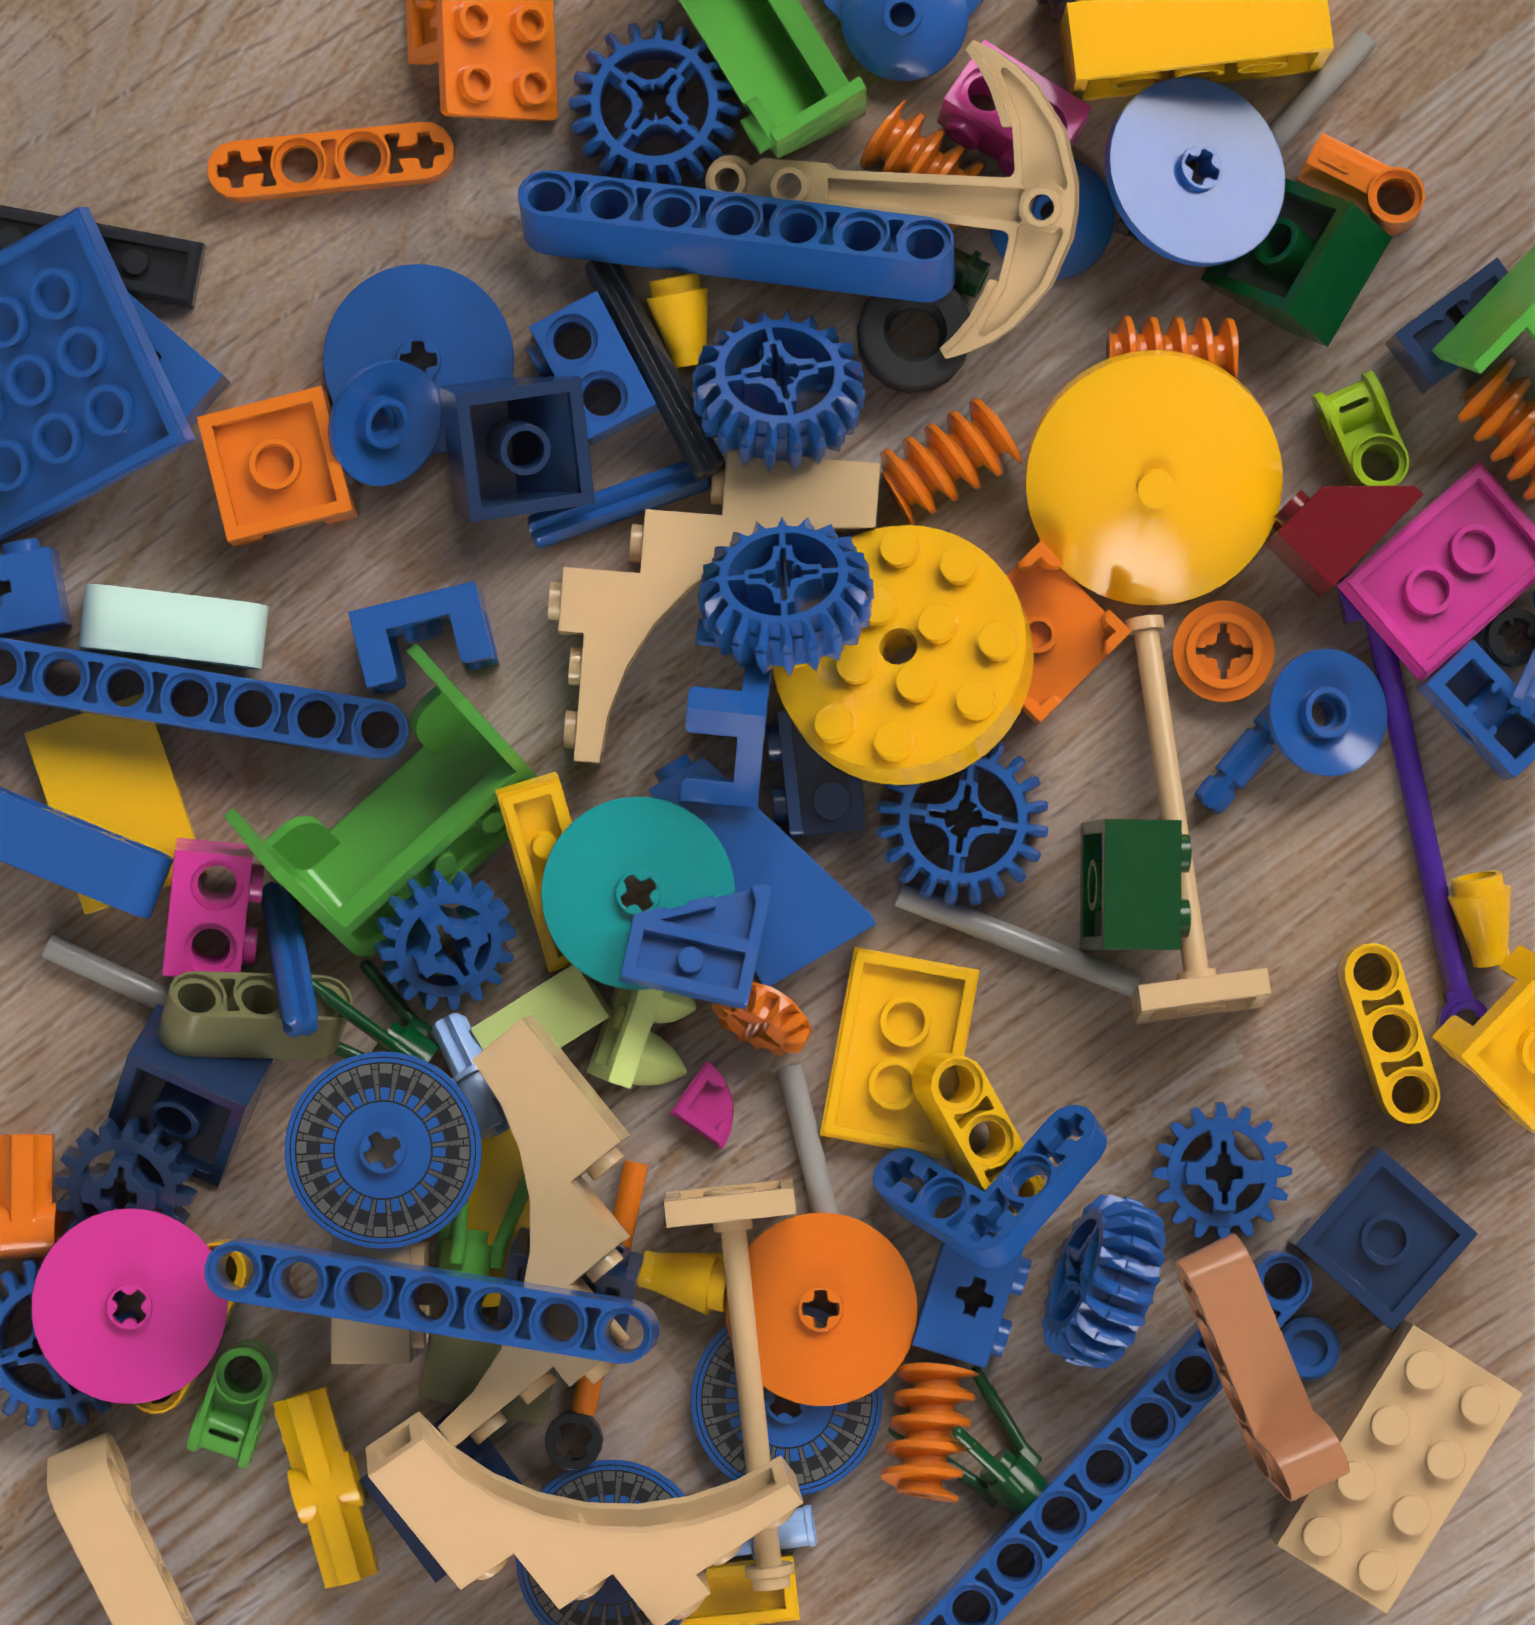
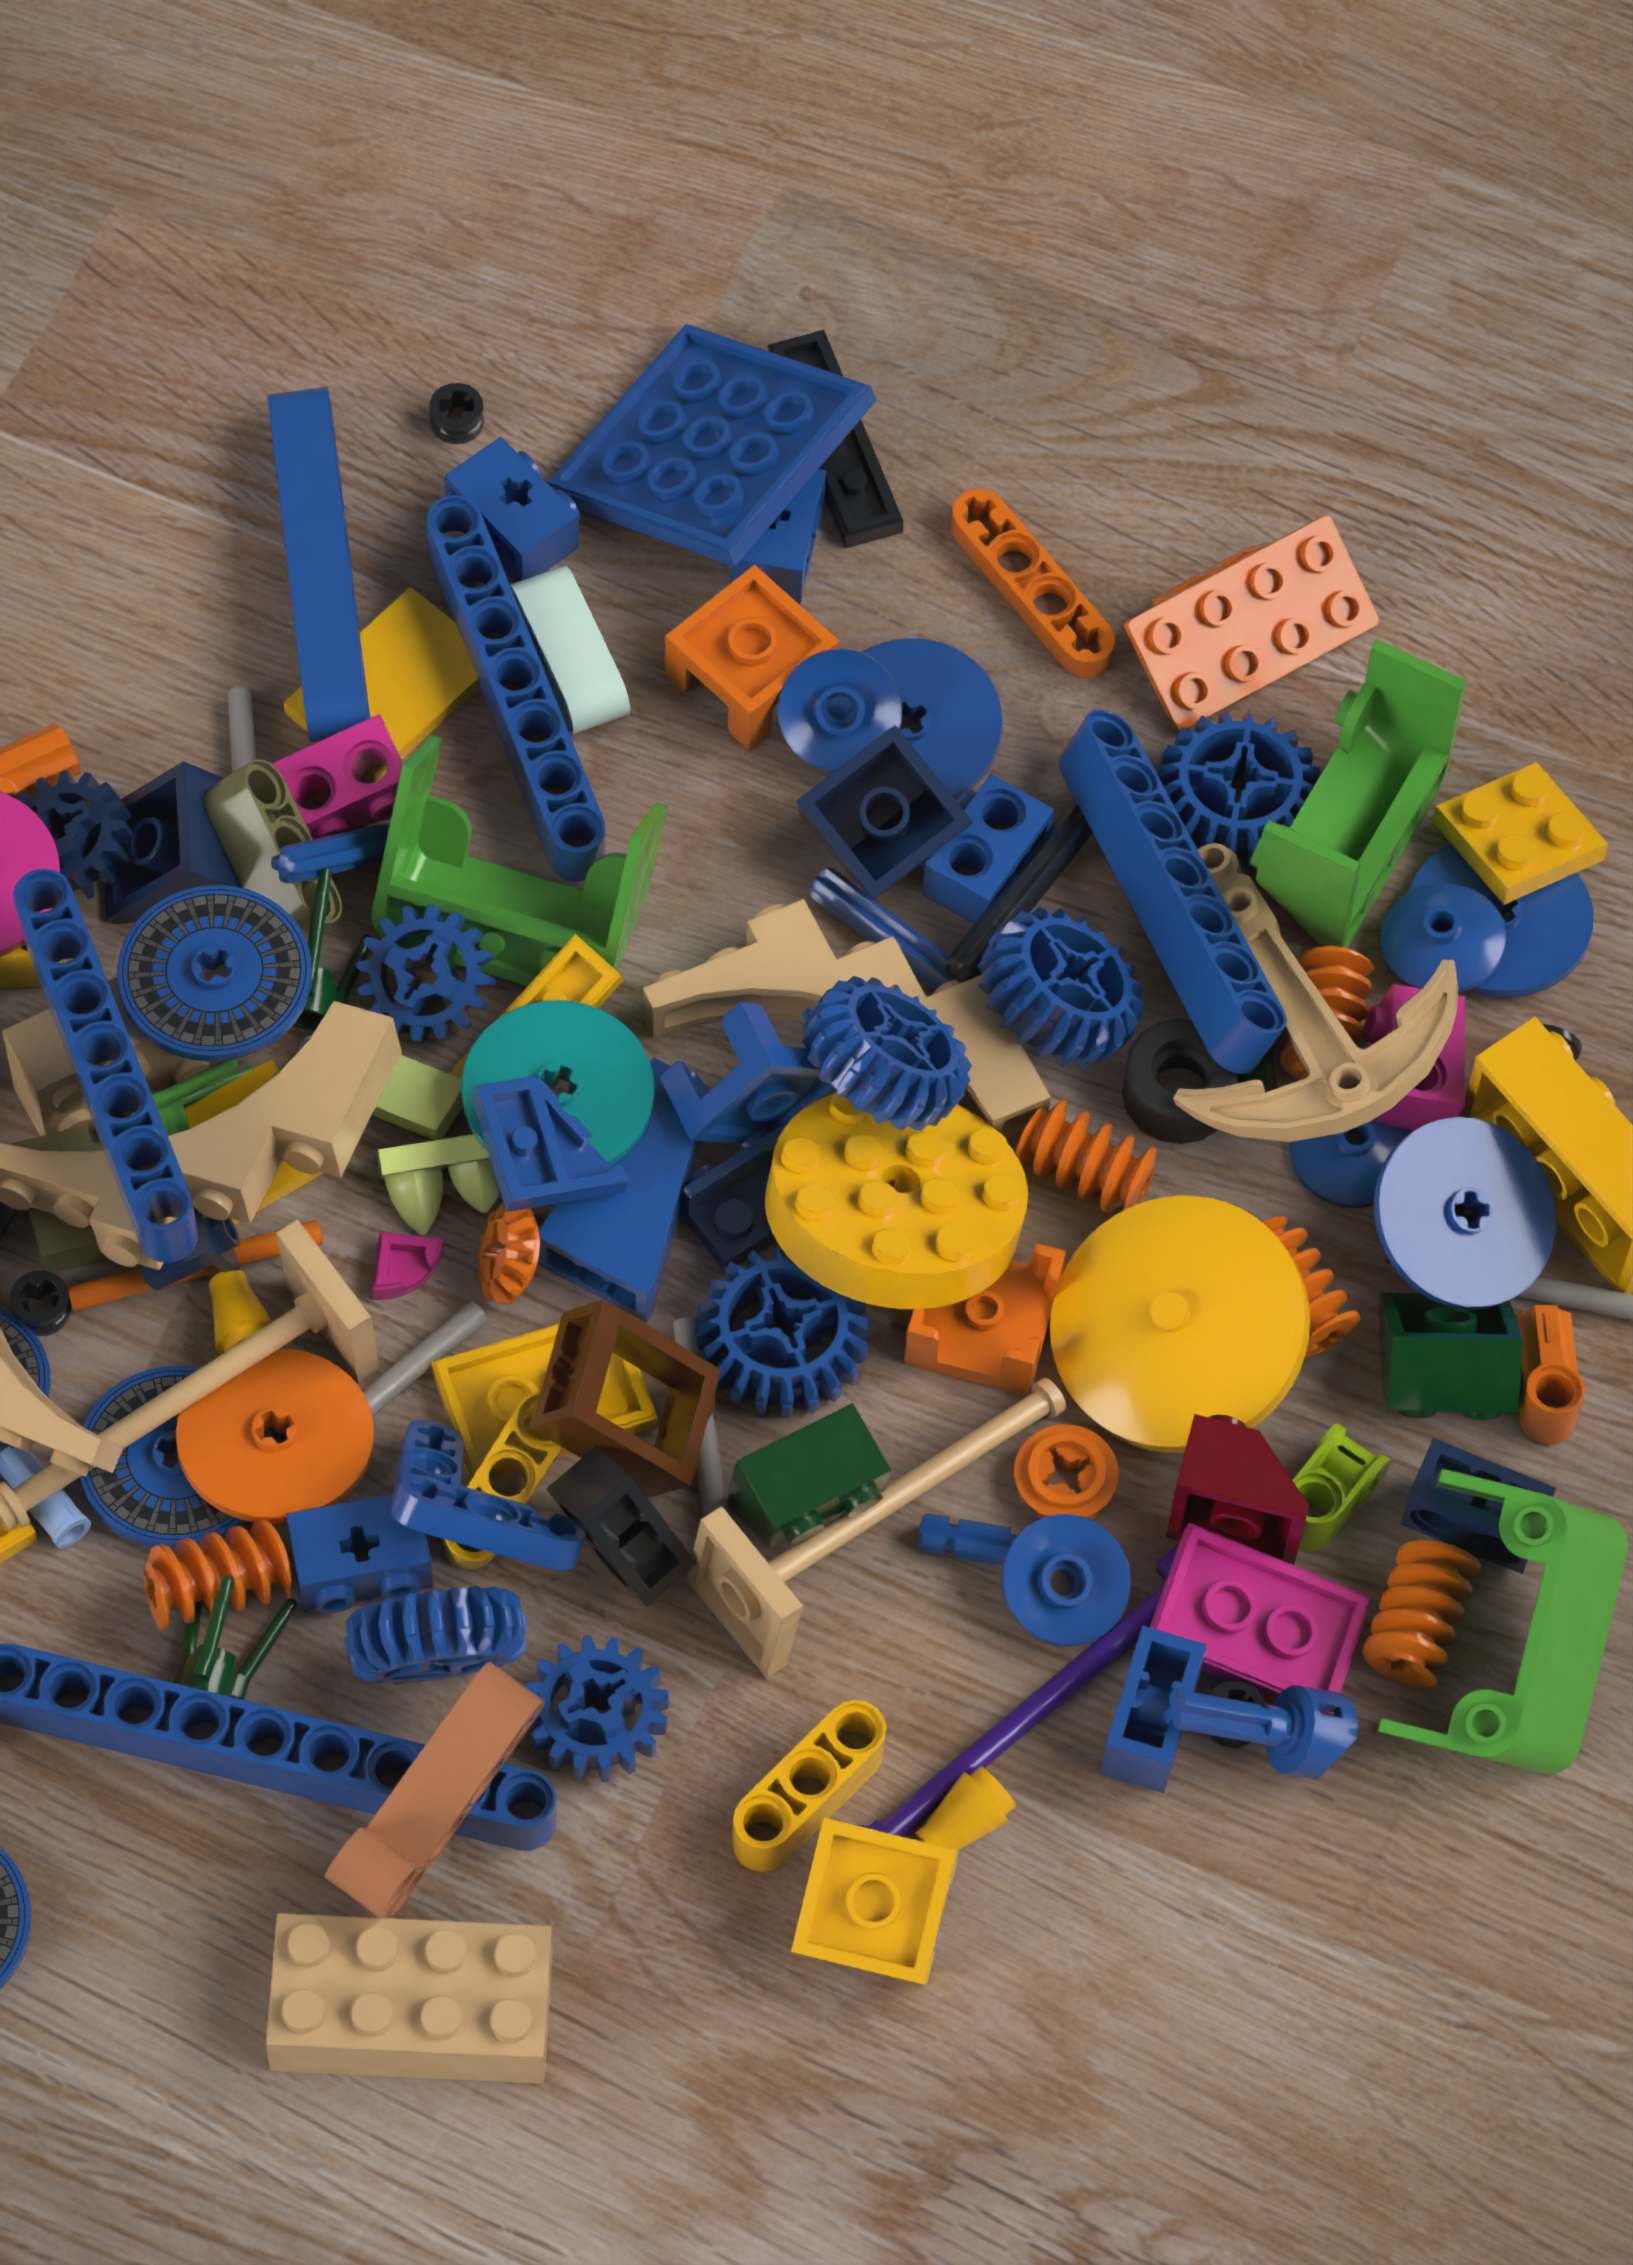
camera: 55 degrees right, 25 degrees down
(418, 620) = (699, 817): blue panel -> none
(681, 316) = (1083, 890): yellow cone -> none
(969, 1057) = (576, 1381): none -> reddish brown window
(1087, 1069) = (621, 1525): none -> black brick
(1311, 1345) = (476, 1876): blue tile -> none
(1384, 1238) = (618, 1870): dark blue panel -> none

